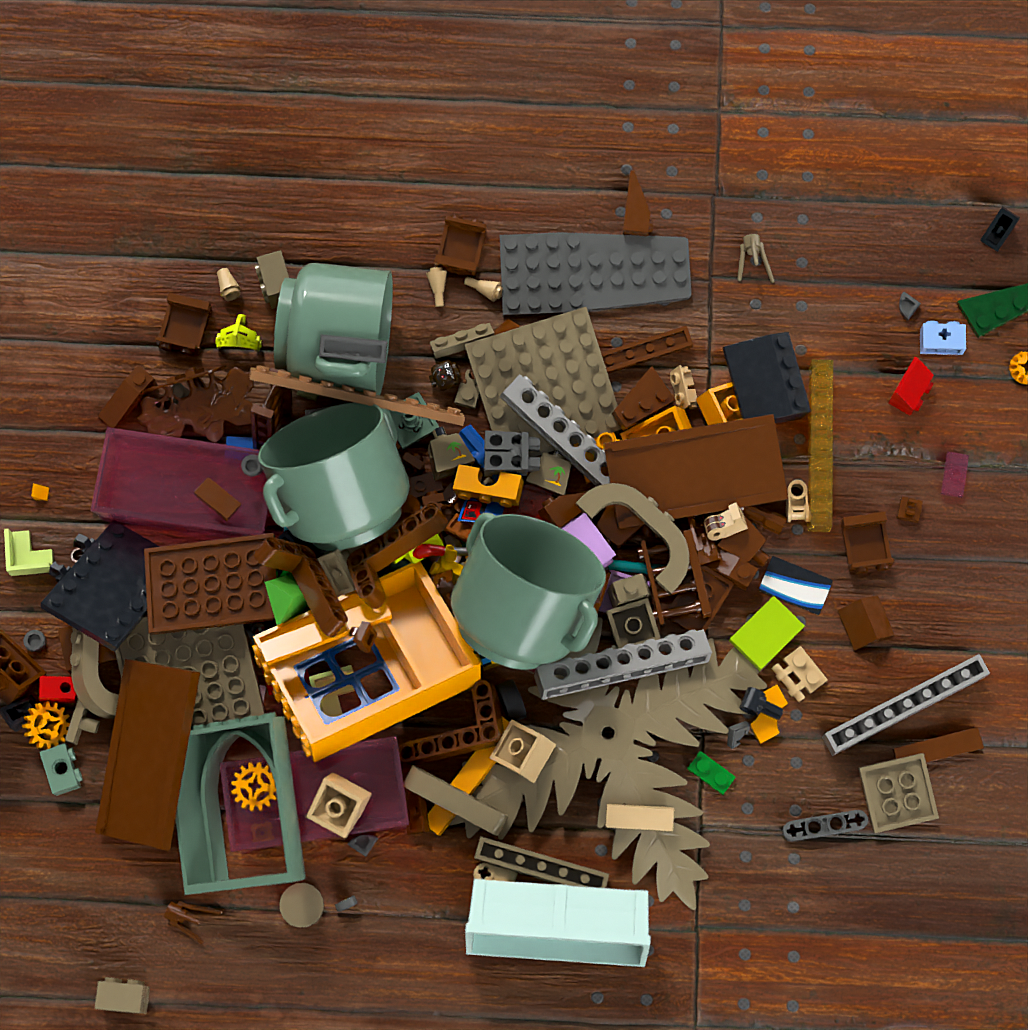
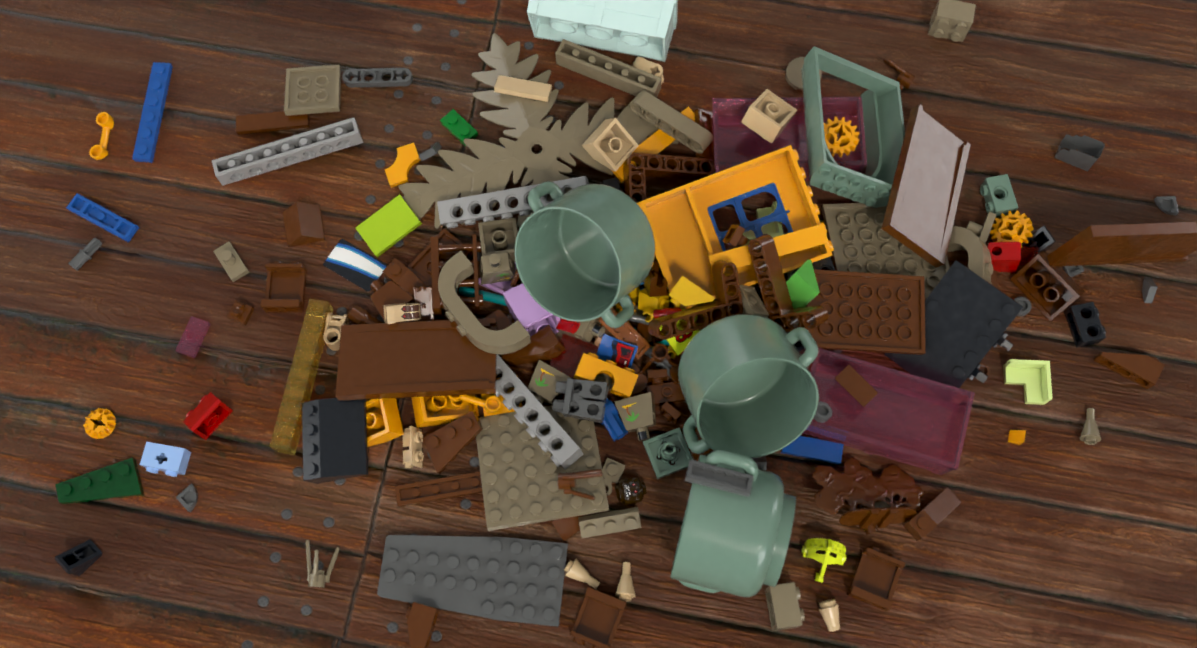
camera: 170 degrees left, 5 degrees down
(29, 698) = (1027, 254): none -> clear red tile
(267, 416) = (806, 447): reddish brown fence -> none
(345, 904) = (768, 68): dark grey tile -> none
(348, 393) = (693, 445): medium nougat plate -> none
(406, 573) = (688, 294): none -> yellow slope
(510, 361) = (568, 480): none -> reddish brown plant
(755, 702) = (408, 167): black axle -> none
(804, 670) = (364, 195): tan plate -> none
(937, 567) = (231, 261): none -> dark tan tile

